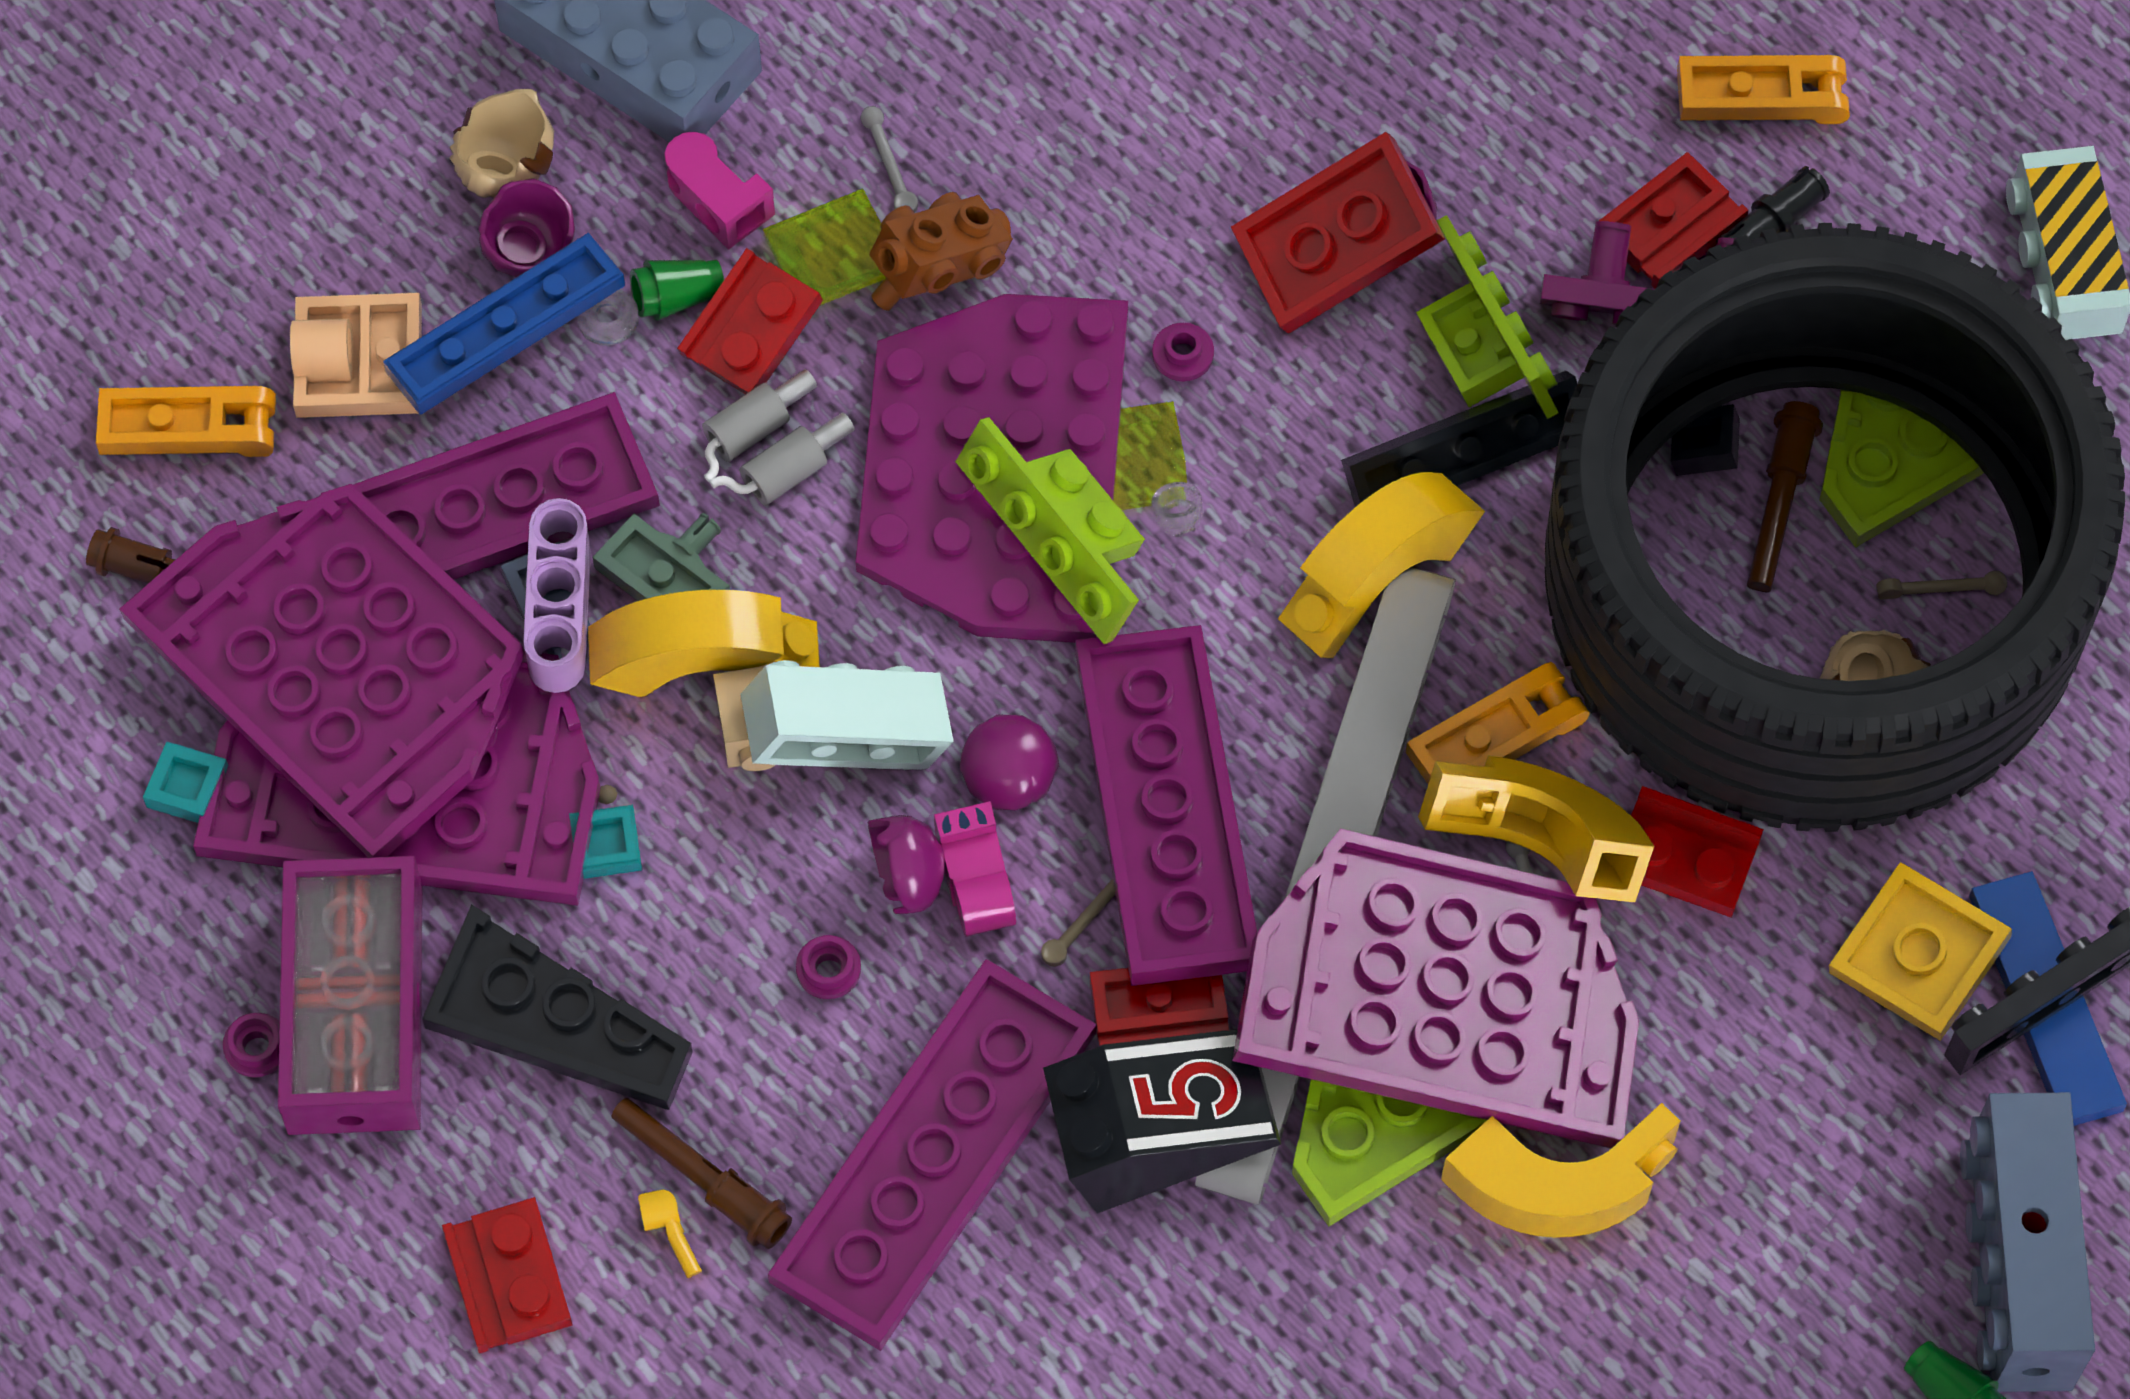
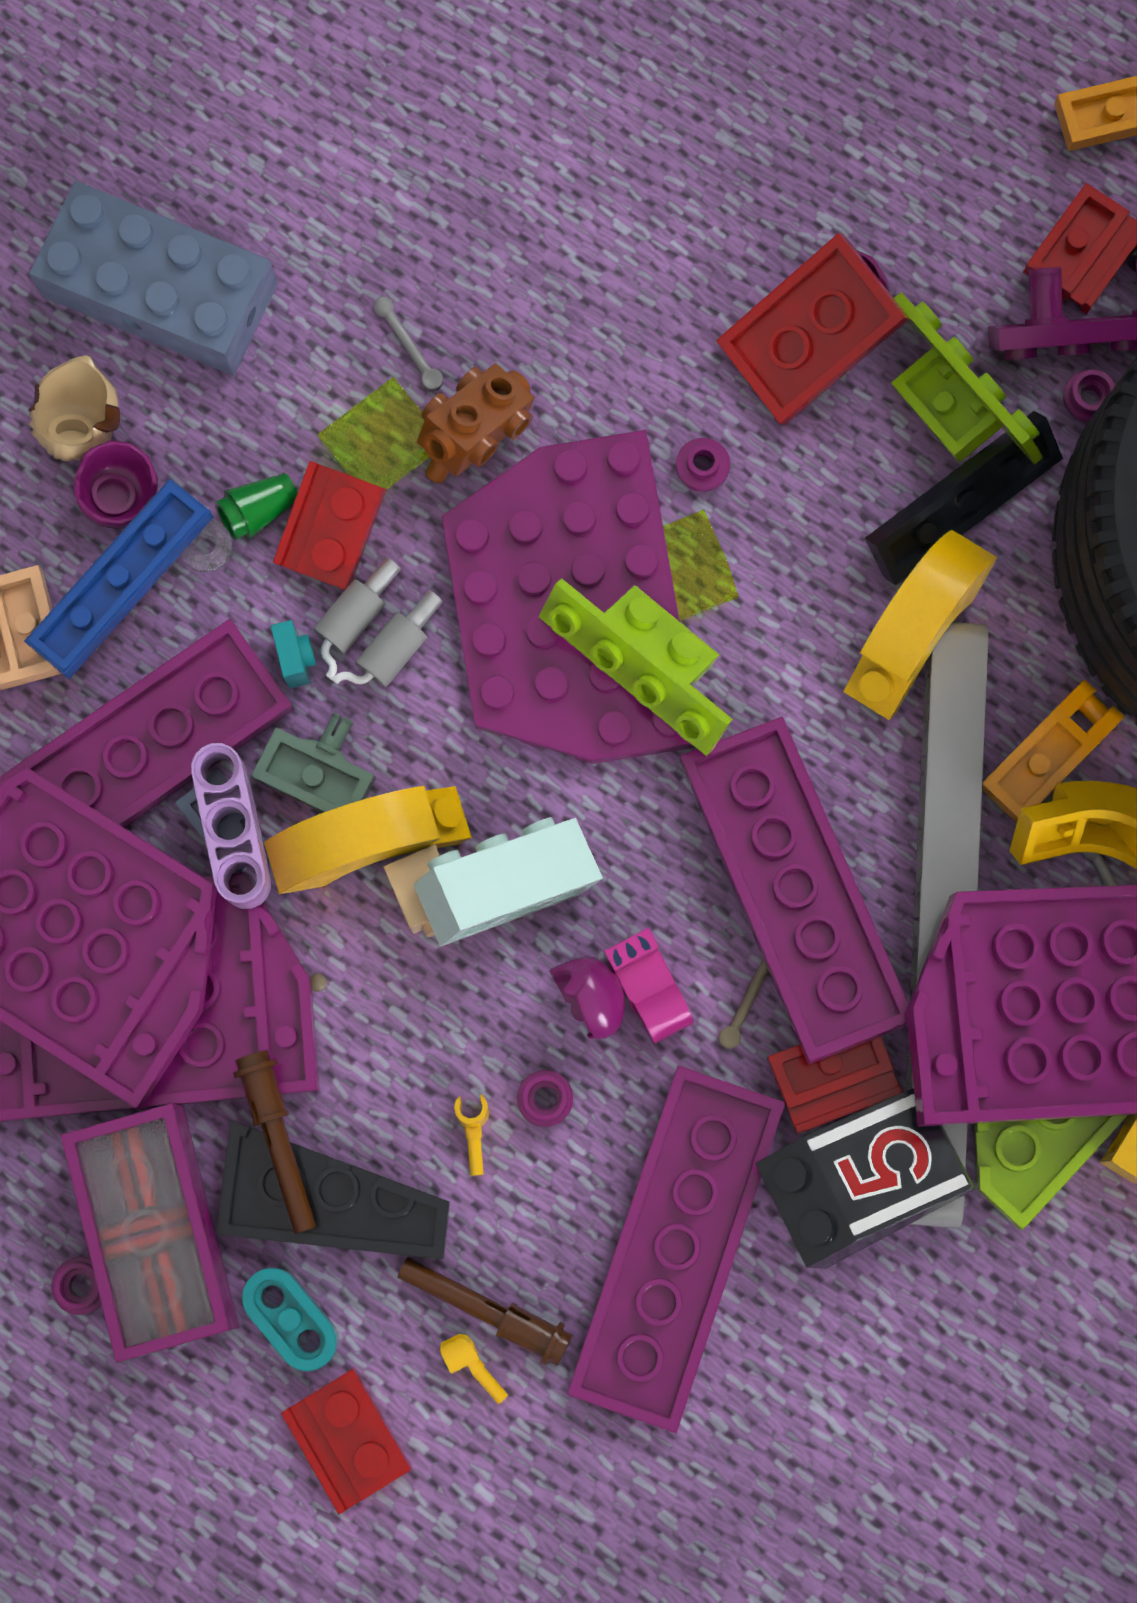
camera: 10 degrees left, 15 degrees up
(482, 1132) = (288, 1321): none -> teal plate
(516, 898) = (268, 1111): none -> reddish brown pin
(612, 842) = (334, 1027): teal tile -> none
(674, 443) = (294, 653): none -> teal plate
(714, 192) = (265, 409): dark pink leg -> none
(739, 977) = (473, 1134): none -> yellow hand
(1009, 762) = (650, 876): magenta hair -> none
(1188, 502) = (743, 603): clear hinge -> none

